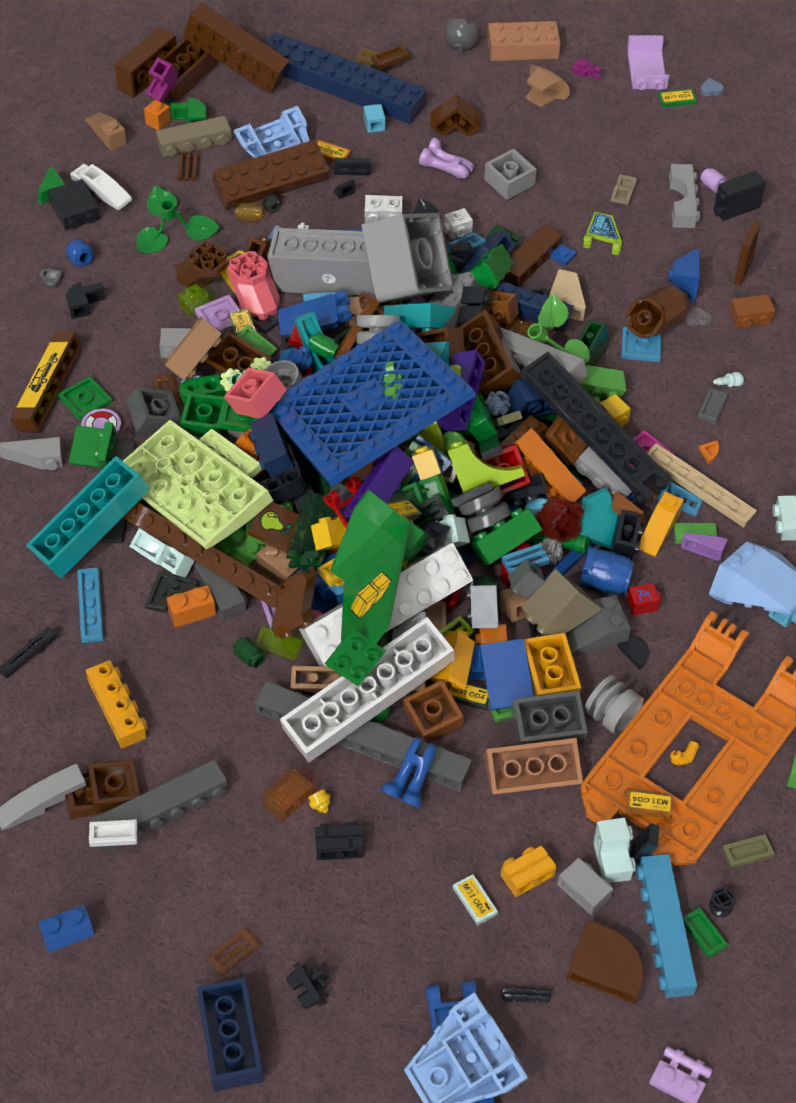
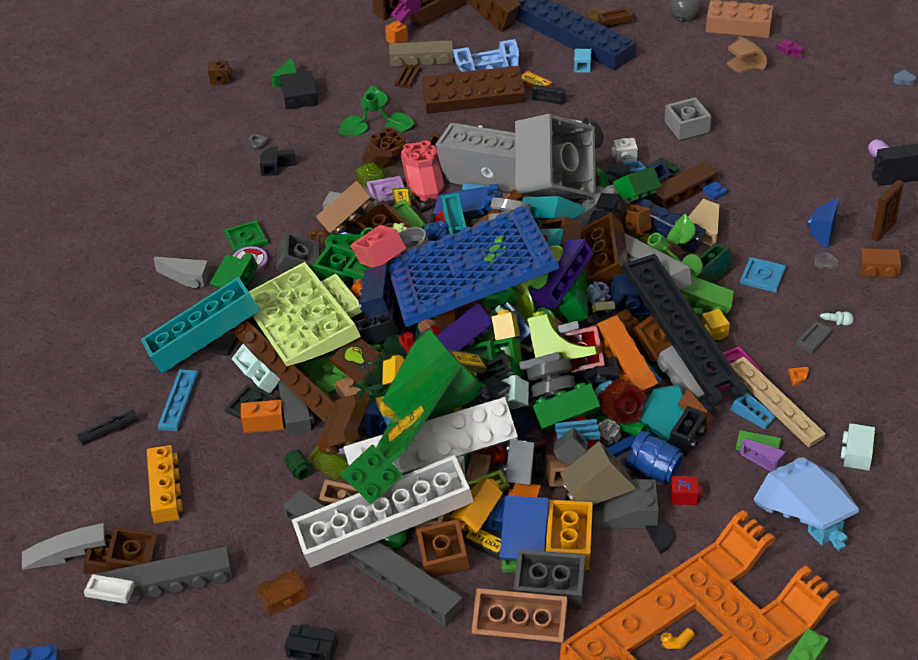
camera: 20 degrees right, 10 degrees down
(46, 382) = (216, 218): reddish brown brick -> none
(79, 252) = (288, 126): blue head -> none
(102, 185) = (328, 79): white slope -> none
(108, 130) = (351, 40): medium nougat slope -> none
(191, 111) = (423, 34): green brick -> none
(249, 212) = (444, 116): clear yellow brick -> none
(269, 201) = (469, 108): pearl dark grey tile -> none
(320, 801) = (309, 604): yellow plate -> none
(322, 345) = (457, 220): green brick -> none
(345, 189) = (535, 110): black slope -> none
(411, 759) = (403, 583): blue piece -> none
(439, 159) = (628, 99): lavender piece -> none
(455, 114) = (654, 65): reddish brown brick -> none
(604, 229) = (761, 175): flag -> none
(613, 704) = (617, 575): light grey wheel -> none
(623, 190) = (791, 147): dark tan slope -> none
(646, 62) = (849, 49): lavender panel -> none
(657, 311) = (785, 247): reddish brown brick -> none
(661, 523) = (726, 427): light orange slope -> none
(677, 98) = (868, 81): tile -> none
(684, 211) = (844, 171): light grey arch -> none

